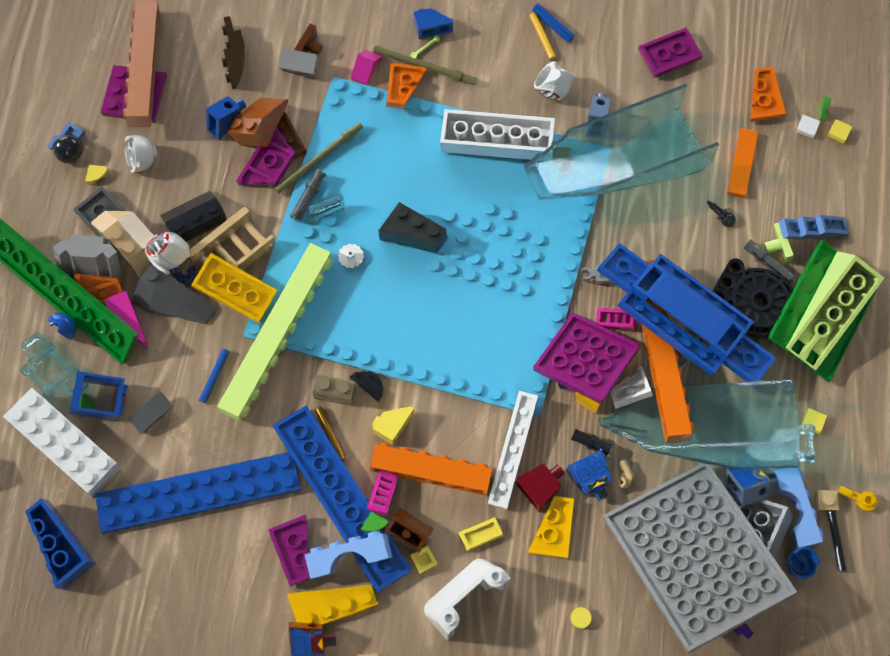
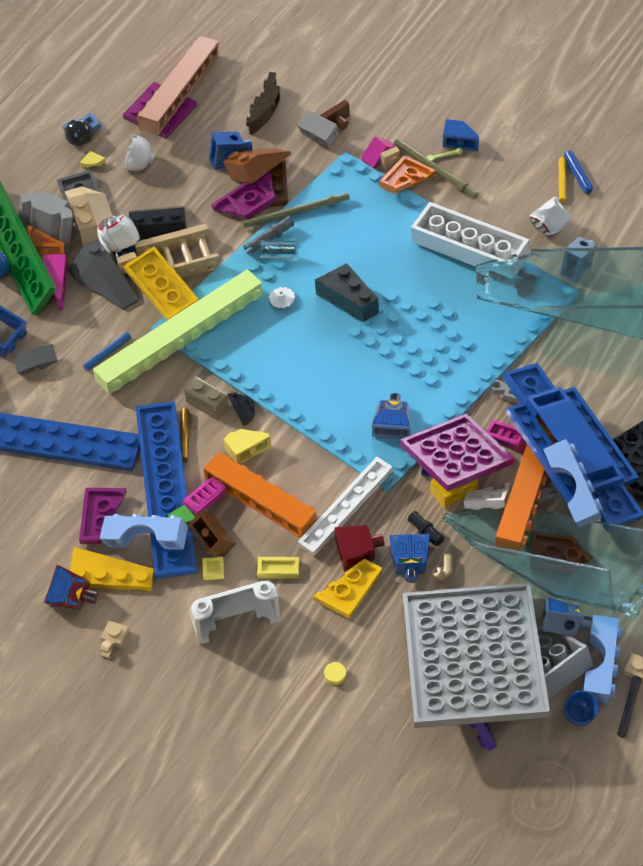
camera: 30 degrees right, 15 degrees down
(188, 276) = (124, 259): none -> tan plate
(379, 70) = (390, 157): none -> tan plate
(513, 344) = (391, 418): none -> torso
(716, 422) = (558, 547): none -> reddish brown tile
(730, 376) = (582, 506): none -> light blue arch

